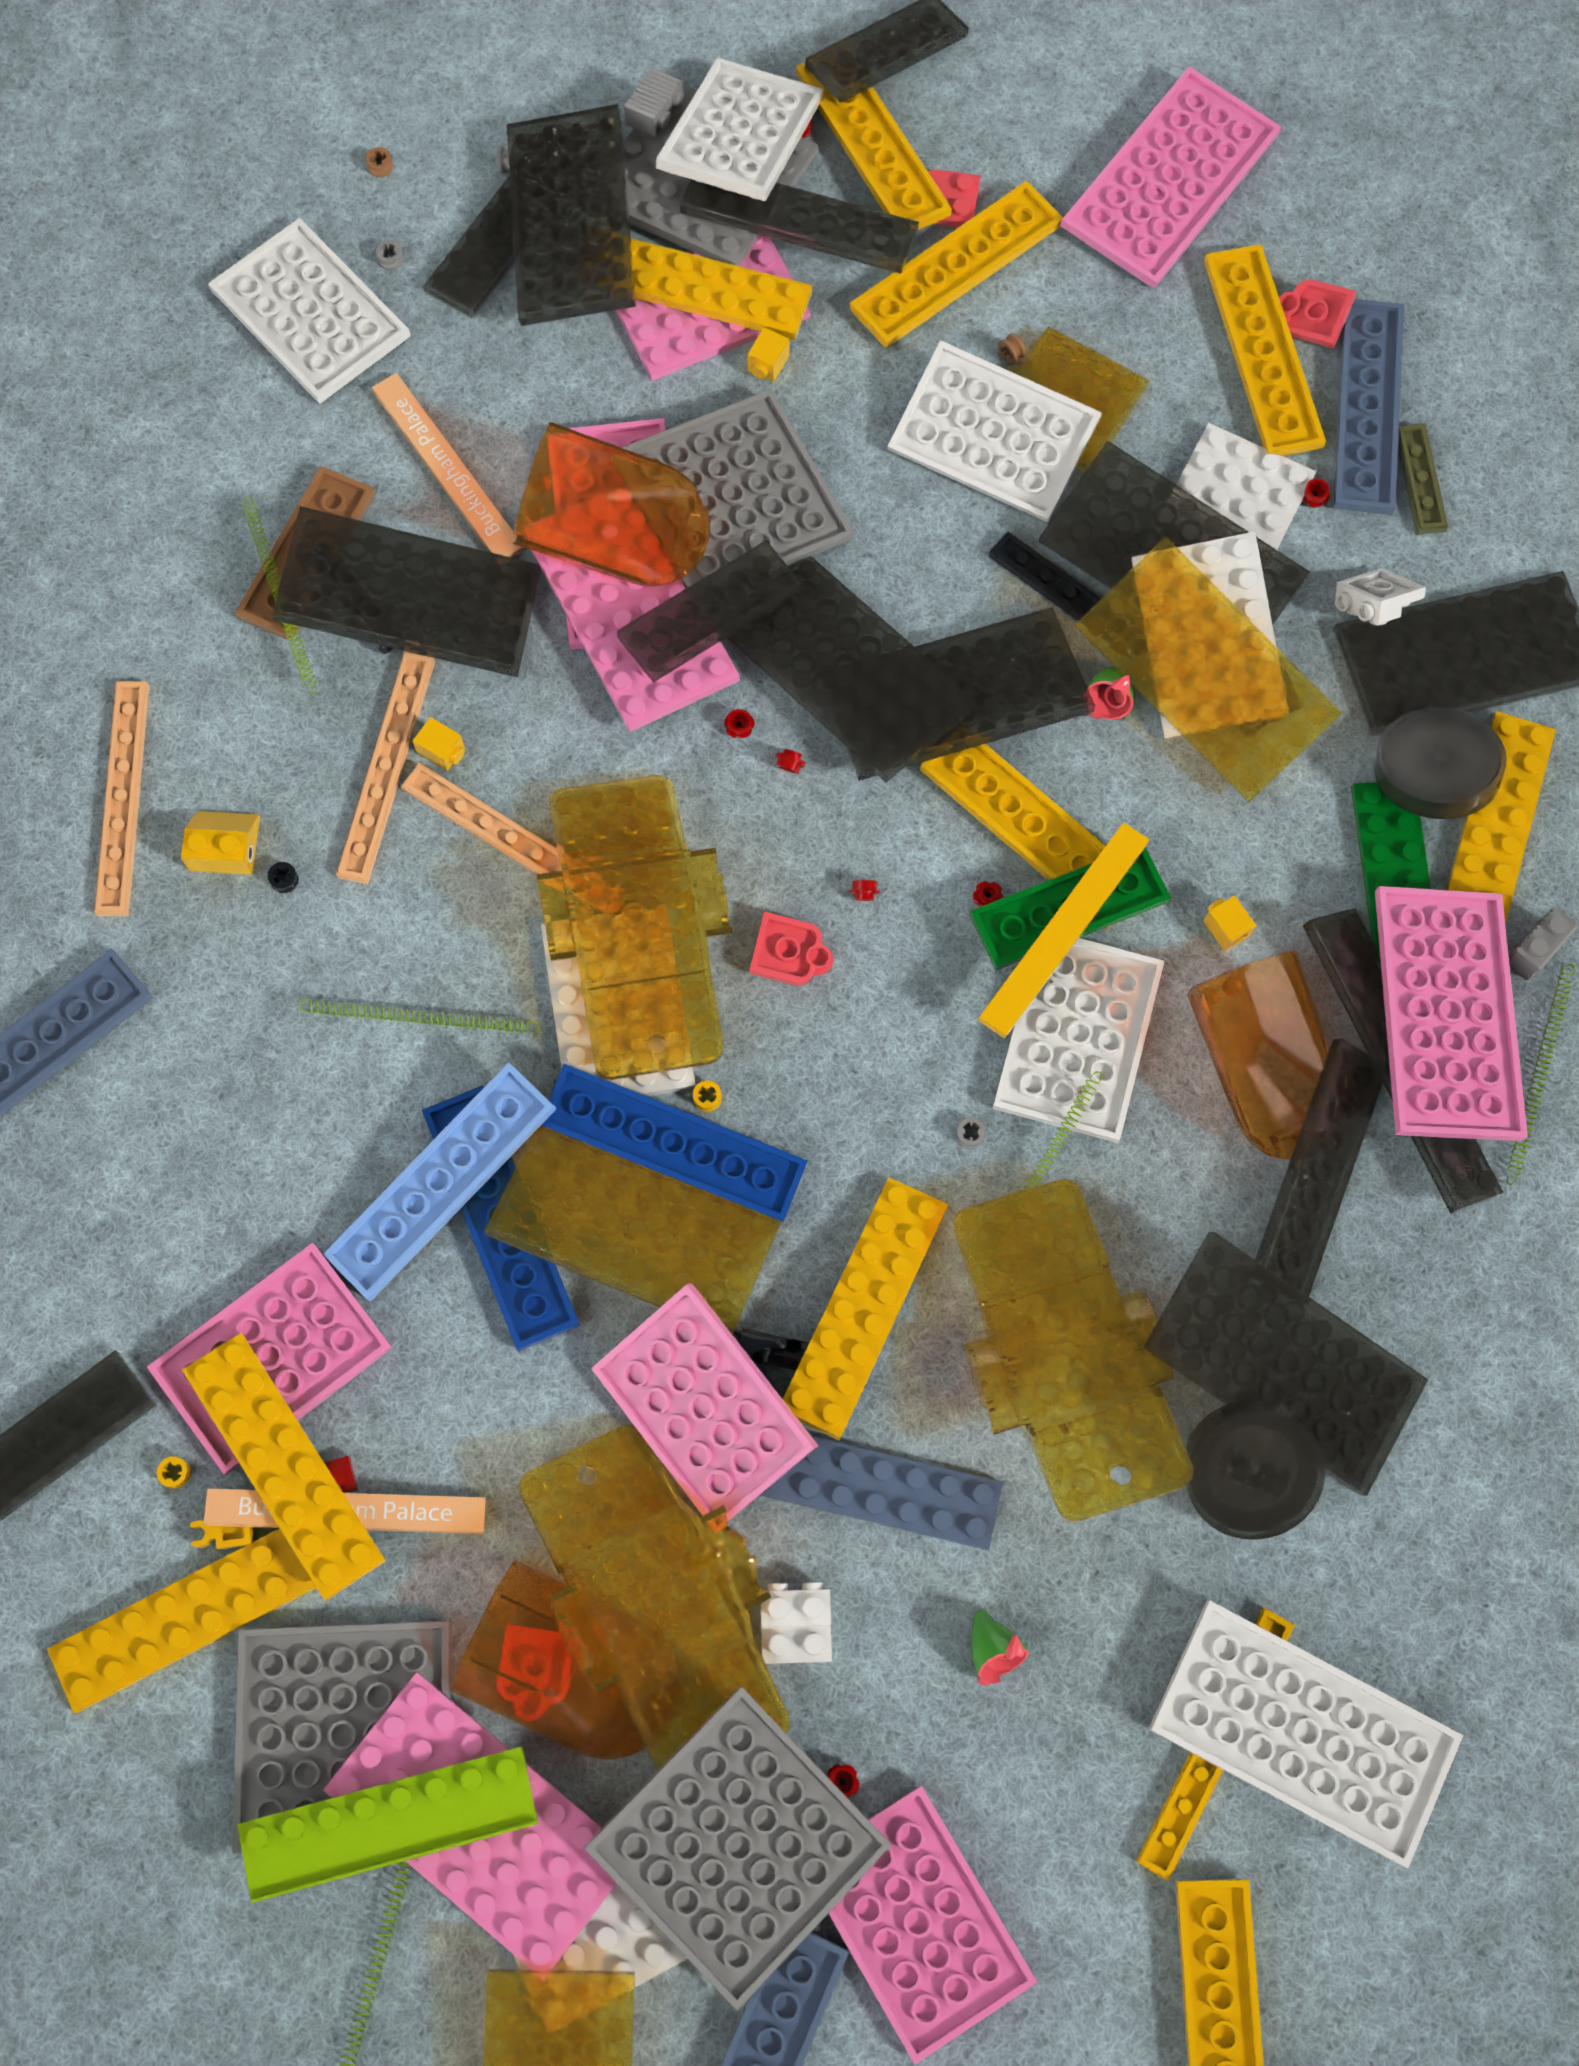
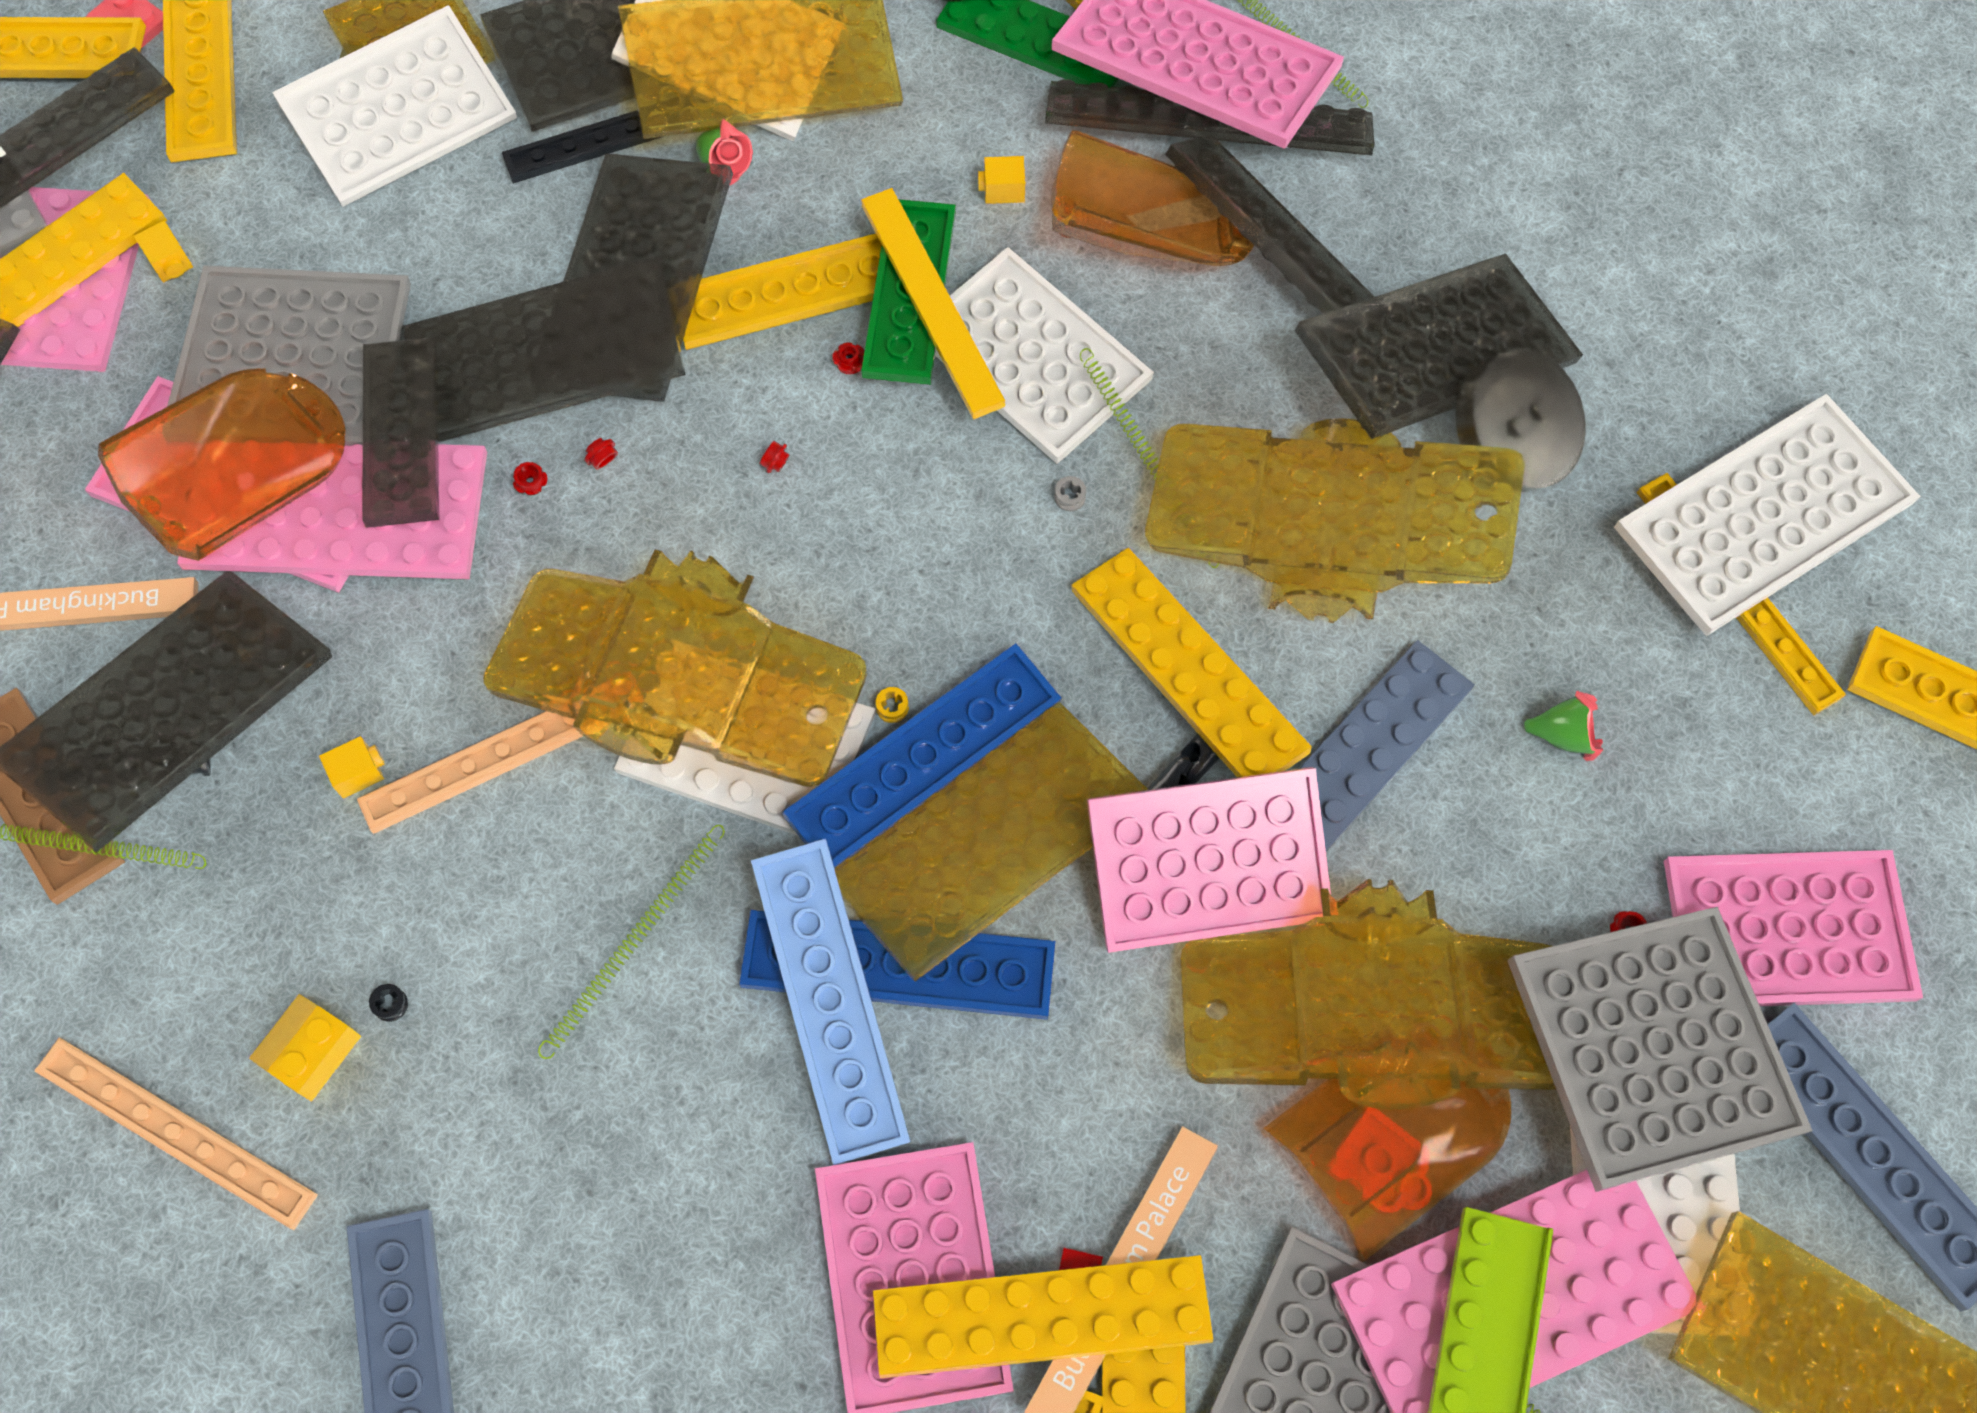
camera: 60 degrees left, 5 degrees down
(385, 768) = (339, 837): light nougat tile -> none
(789, 951) = (791, 555): coral plate -> none
(796, 1624) = (1463, 888): white plate -> none
(1012, 348) = (316, 45): medium nougat bush -> none

